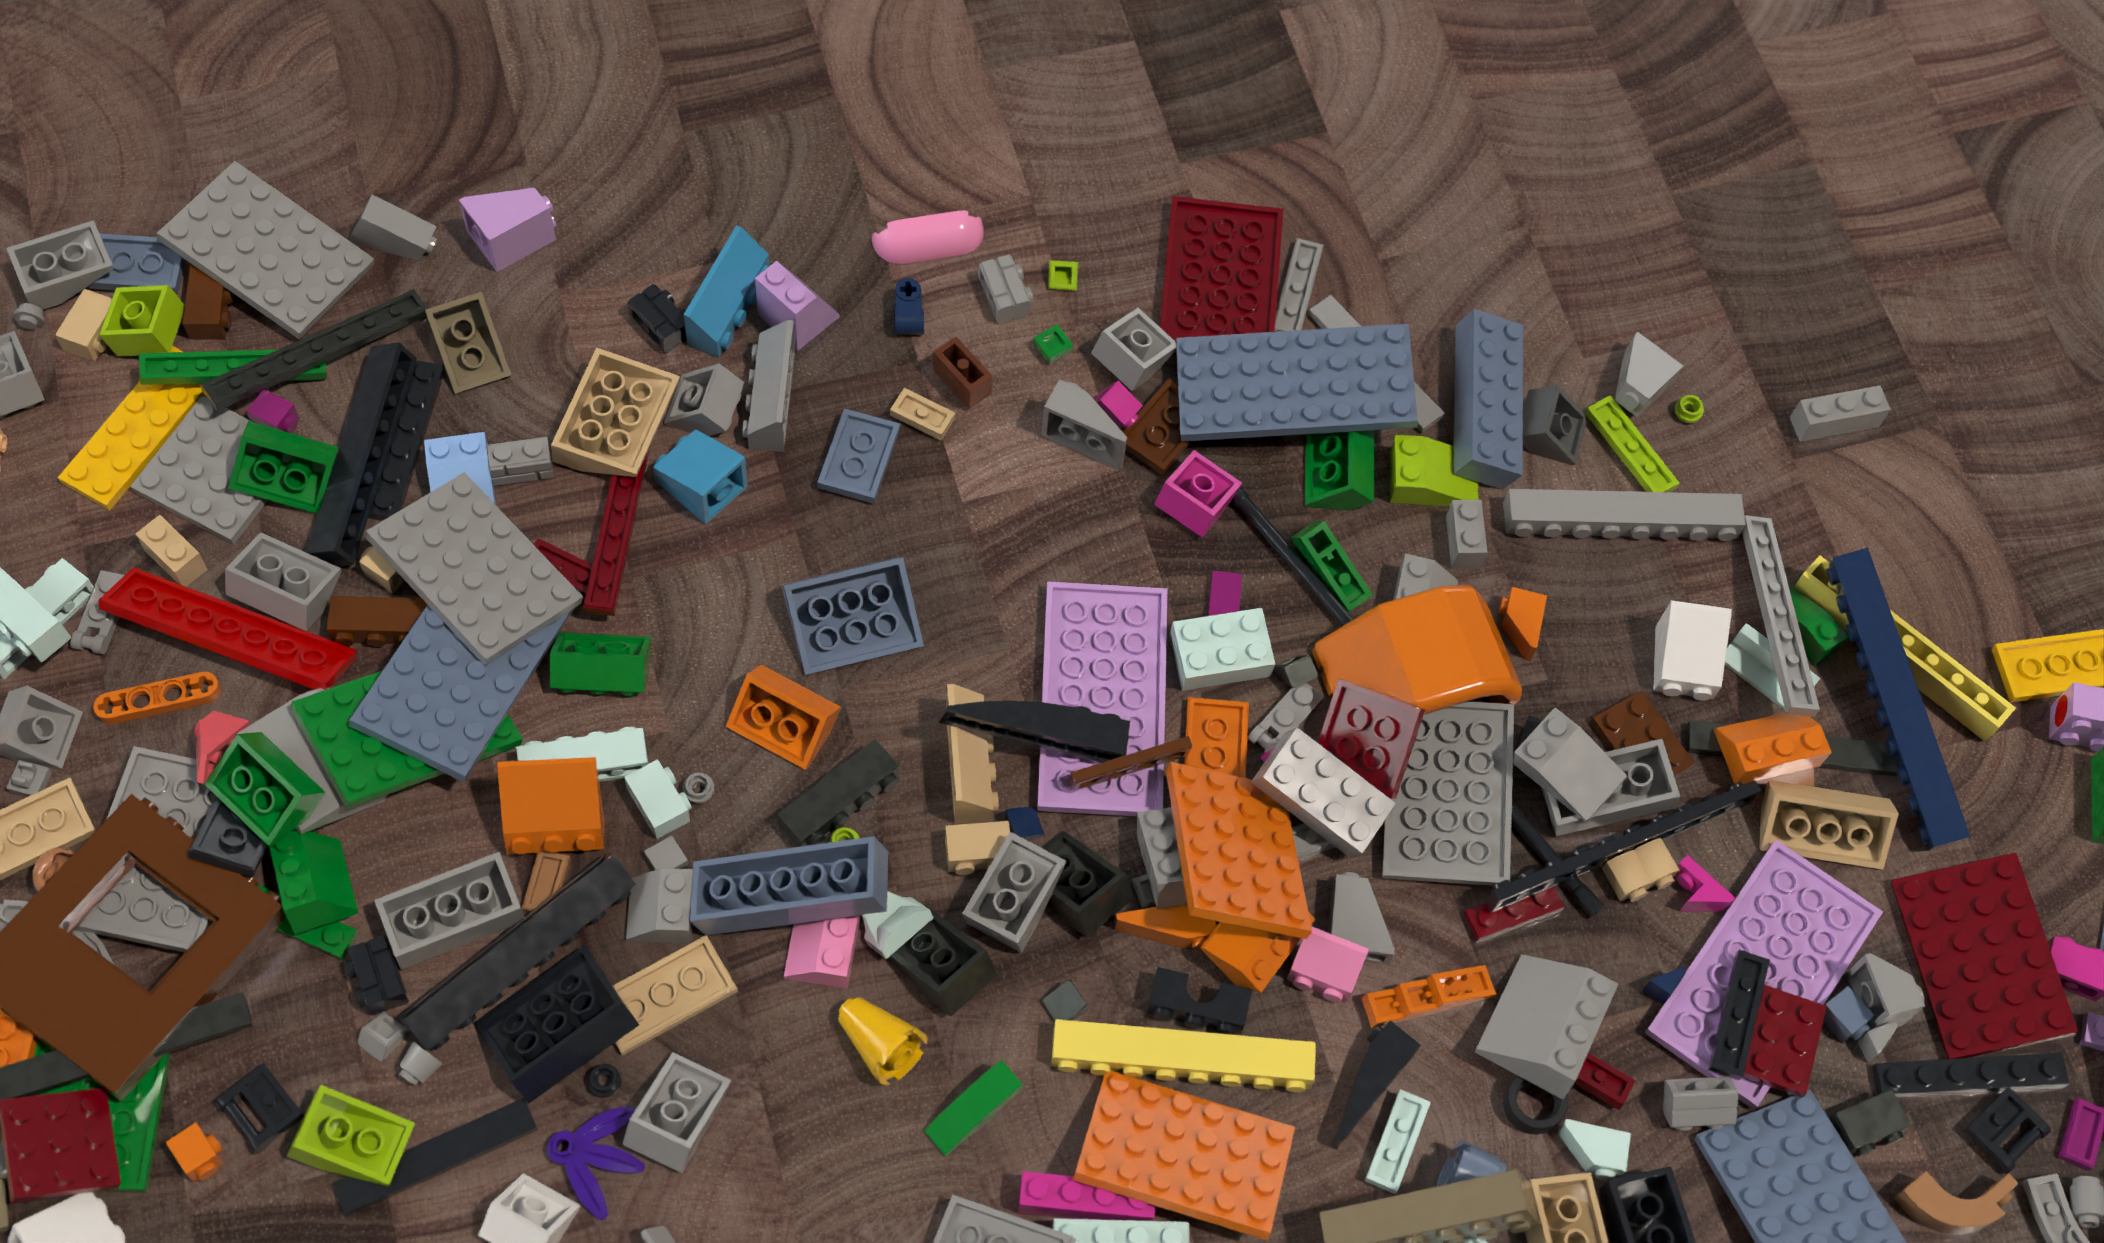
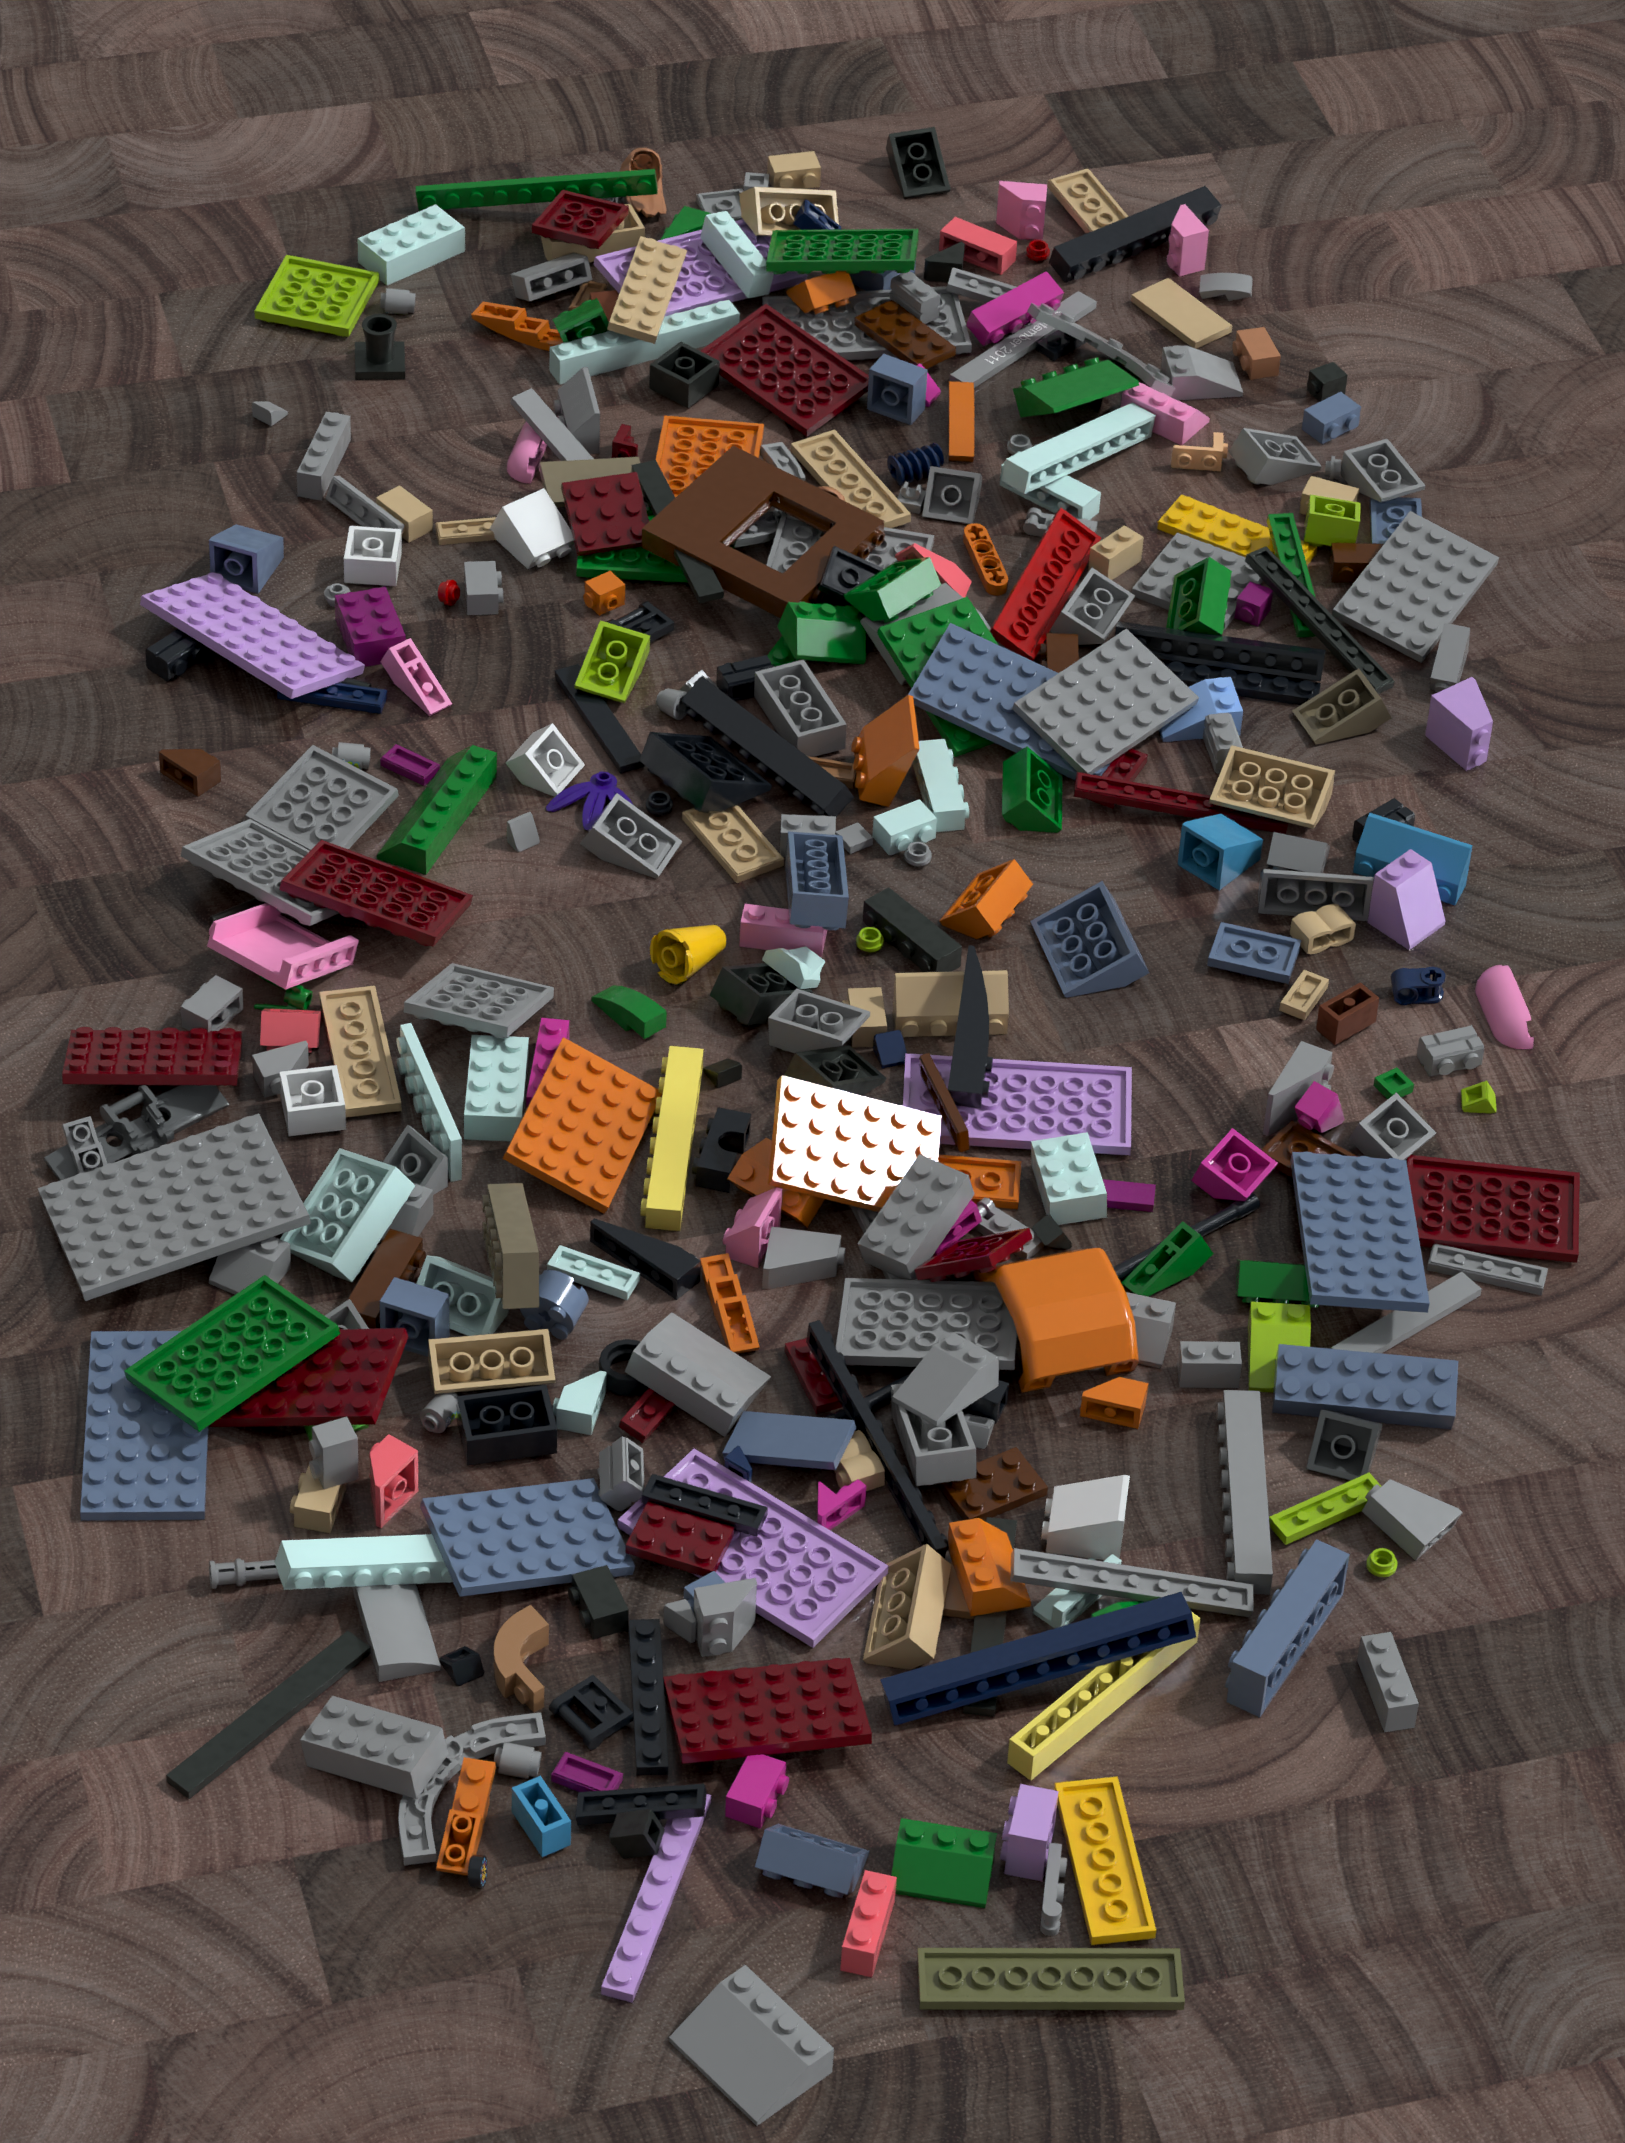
camera: 95 degrees right, 20 degrees down
(822, 388) = (1322, 928): none -> tan brick
(1631, 928) = (791, 1439): none -> sand blue tile
(1805, 486) = (1286, 1627): none -> sand blue brick

